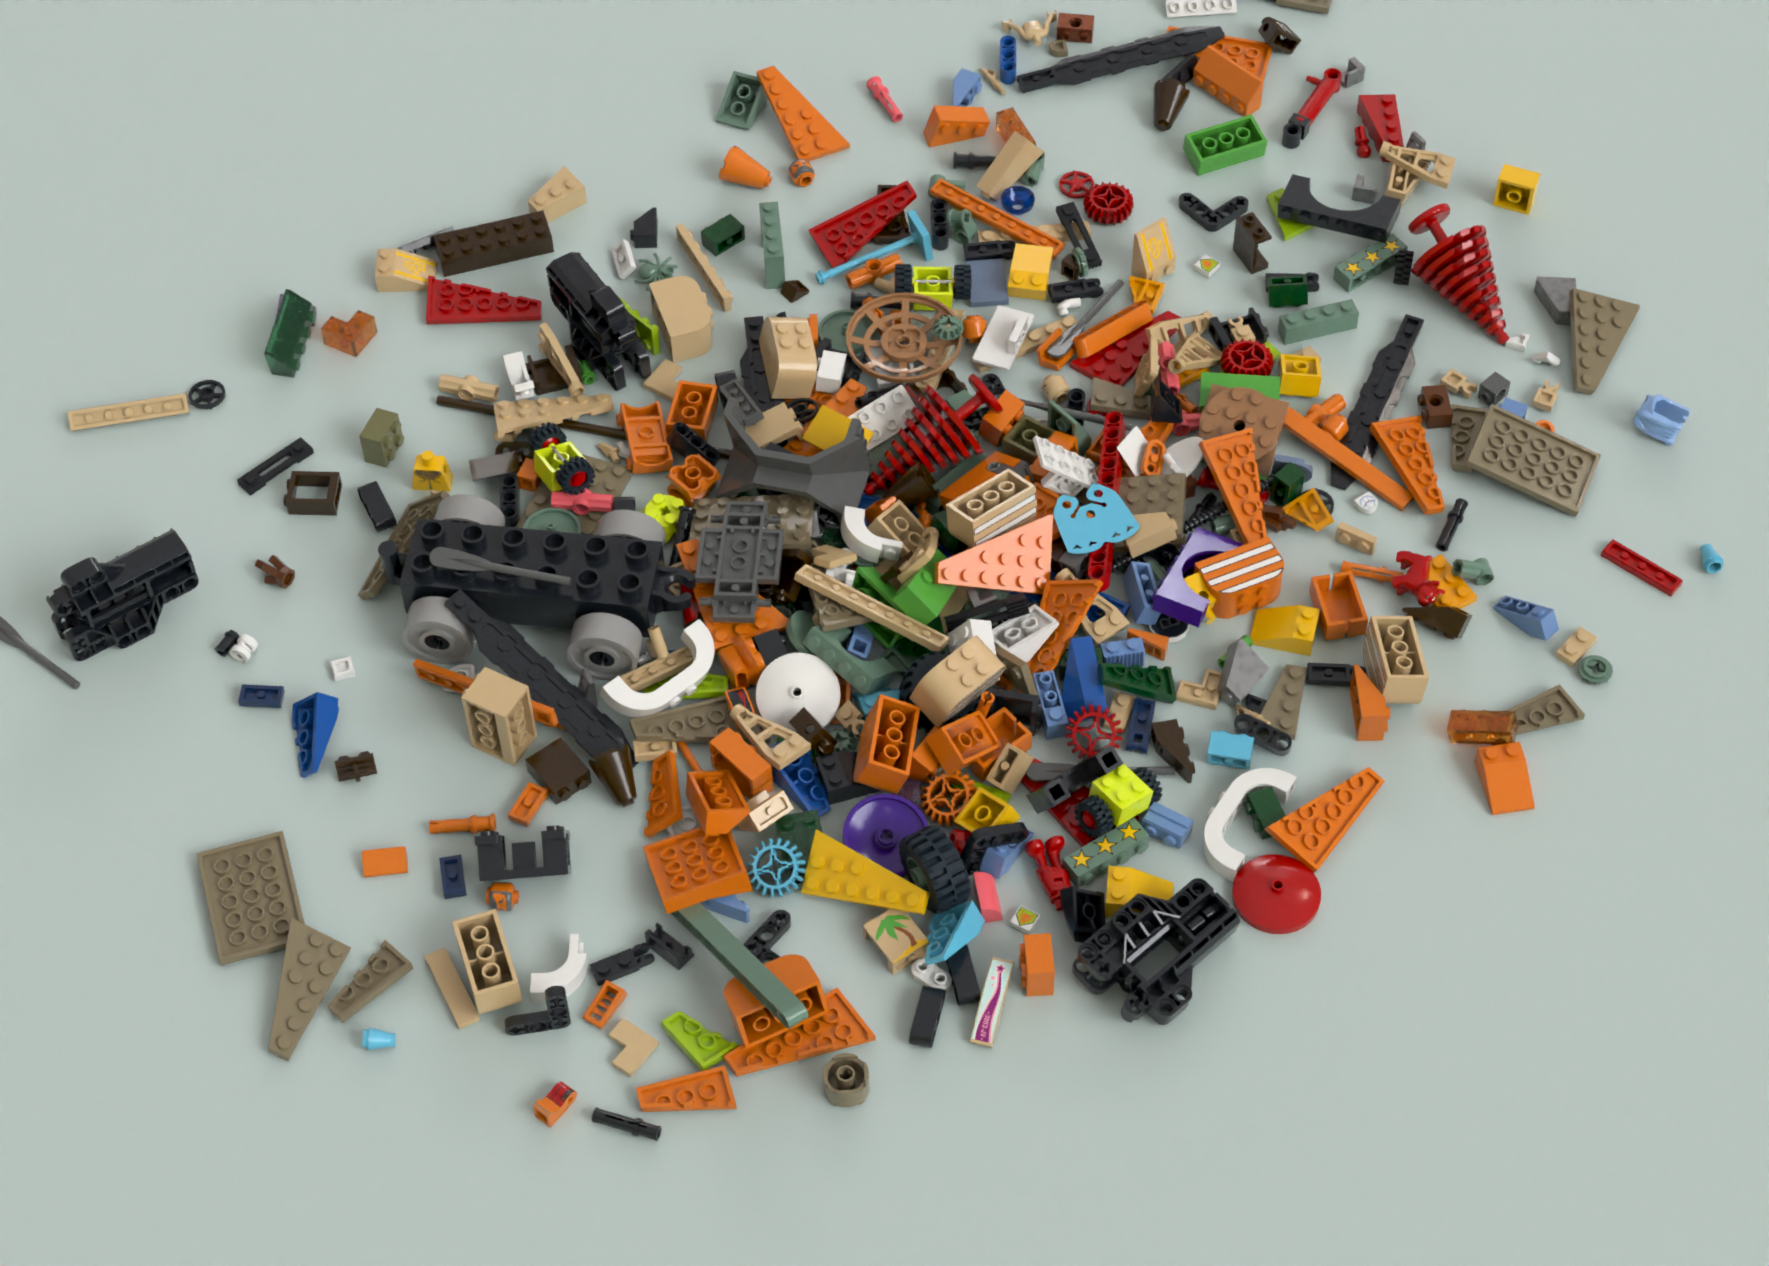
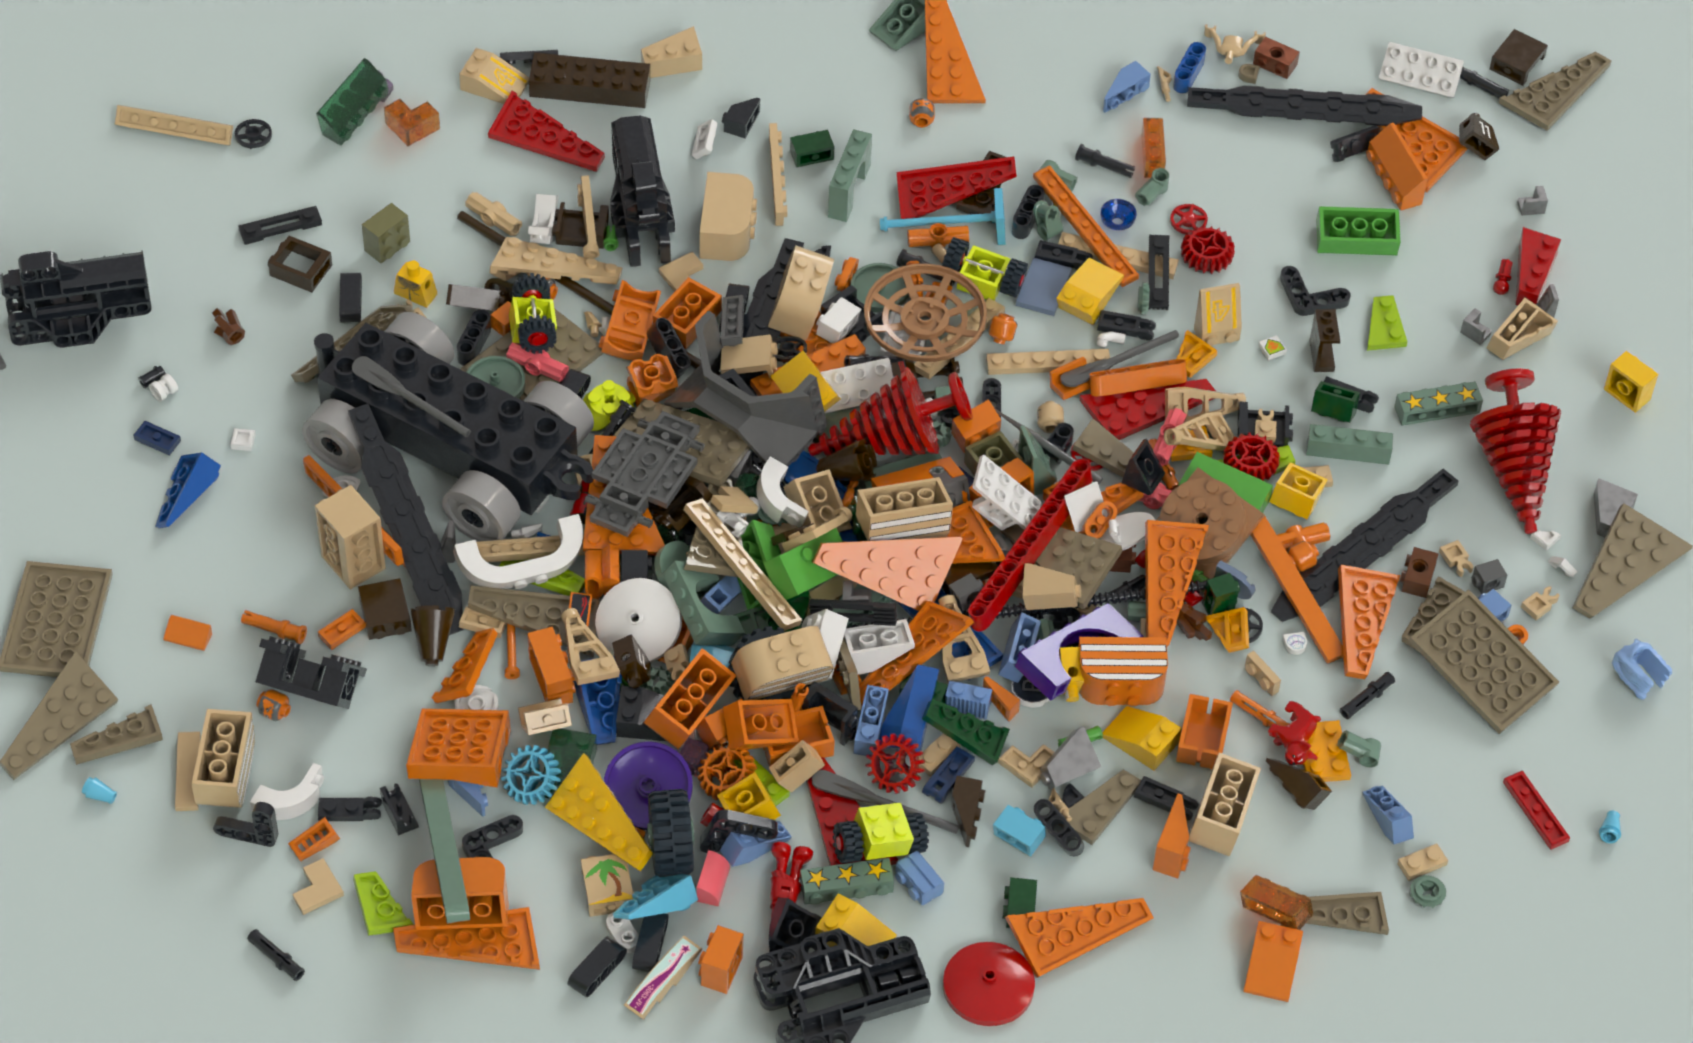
camera: 20 degrees right, 0 degrees up
(355, 767) = (205, 535): dark brown hips -> none
(453, 876) = (240, 670): dark blue plate -> none
(554, 1104) = (222, 911): orange leg -> none
(647, 333) = (682, 208): lime wing -> none
(653, 272) = (727, 163): sand green animal -> none
(656, 643) = (532, 522): tan piece -> none
(694, 1091) = (349, 950): orange wing -> none
(716, 800) = (506, 690): orange slope -> none
(744, 170) = (865, 89): orange cone -> none
(793, 290) = (852, 227): dark brown slope -> none
(846, 1080) = (489, 994): dark tan brick -> none
(878, 508) = (808, 470): orange slope -> none
(895, 113) = (1044, 59): coral pin -> none
(955, 124) = (1099, 116): orange wedge -> none
(955, 330) = (975, 323): sand green gear -> none
(1003, 338) = (1025, 347): white bracket -> none
(1008, 166) = (1125, 176): tan slope -> none
(1024, 919) = (737, 914): tile -> none
(1069, 267) = (1131, 300): dark brown slope -> none
(1074, 778) = (846, 800): black arch -> none
(1101, 527) = (1001, 569): medium azure piece -> none
(1147, 369) = (1148, 428): tan wing -> none
(1168, 102) = (1324, 167): dark brown cone -> none
(1217, 852) = (988, 884): white arch -> none
(1300, 122) = (1448, 236): red piece -> none
(1370, 223) = (1456, 363): black arch -> none
(1403, 267) = (1461, 423): black tyre -> none
(1442, 167) = (1559, 337): tan plate -> none

